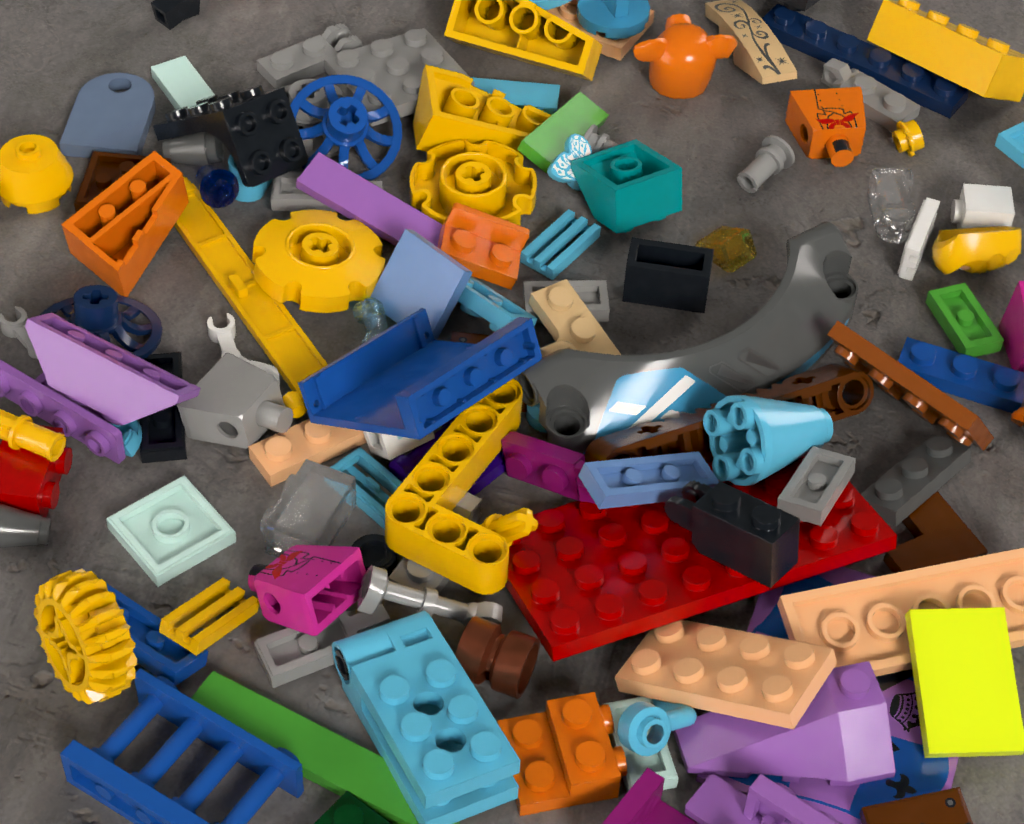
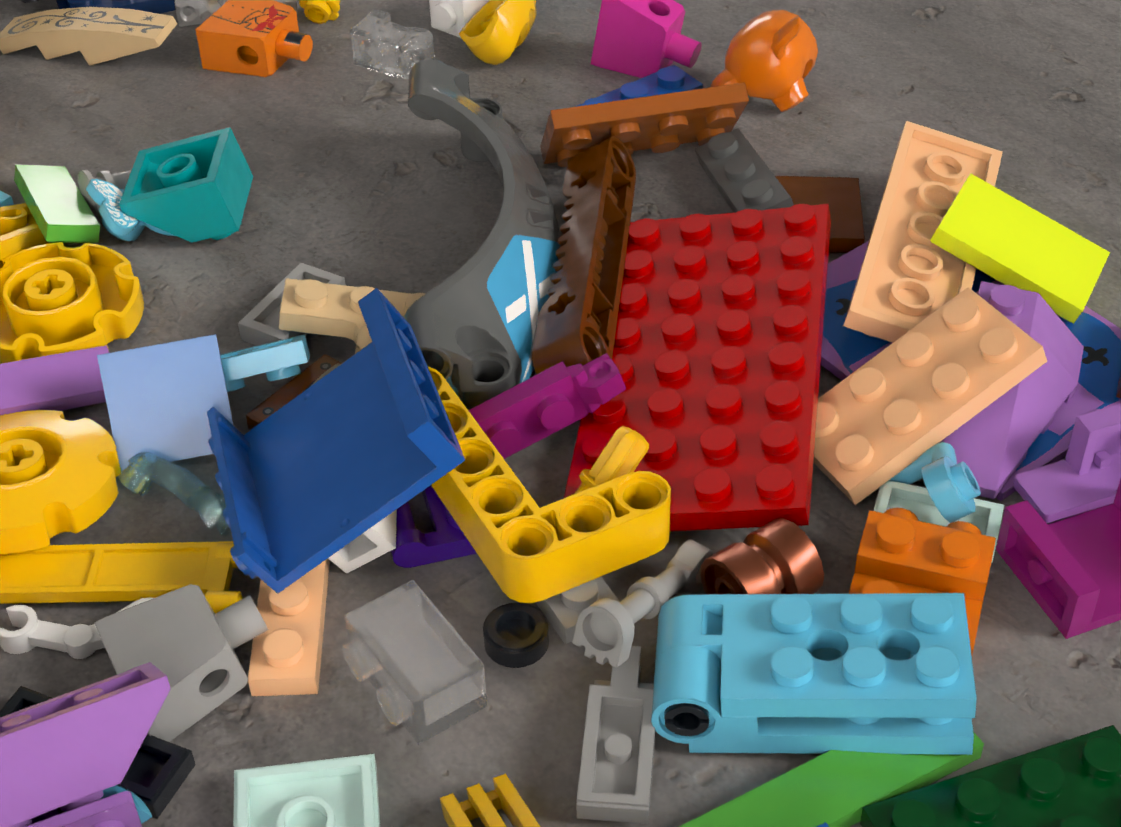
camera: 55 degrees left, 5 degrees down
(308, 586) = (539, 706): dark pink torso -> none
(368, 492) = (449, 595): medium azure tile -> none
(484, 244) = (148, 319): orange bracket -> none
(554, 241) = (196, 260): medium azure tile -> none
(644, 478) = (639, 330): medium blue plate -> none
(667, 275) = (345, 213): black piece -> none
(683, 57) = (63, 74): orange piece -> none
(731, 247) = (330, 171): clear yellow slope -> none
(738, 530) = (767, 286): black hinge -> none
(761, 436) = (647, 235): medium azure cone -> none
(769, 160) = (254, 87): light grey pin -> none
(816, 485) = (738, 221): light grey plate -> none
(918, 239) = (457, 48): white tile -> none
(964, 320) = (575, 71): bright green plate -> none

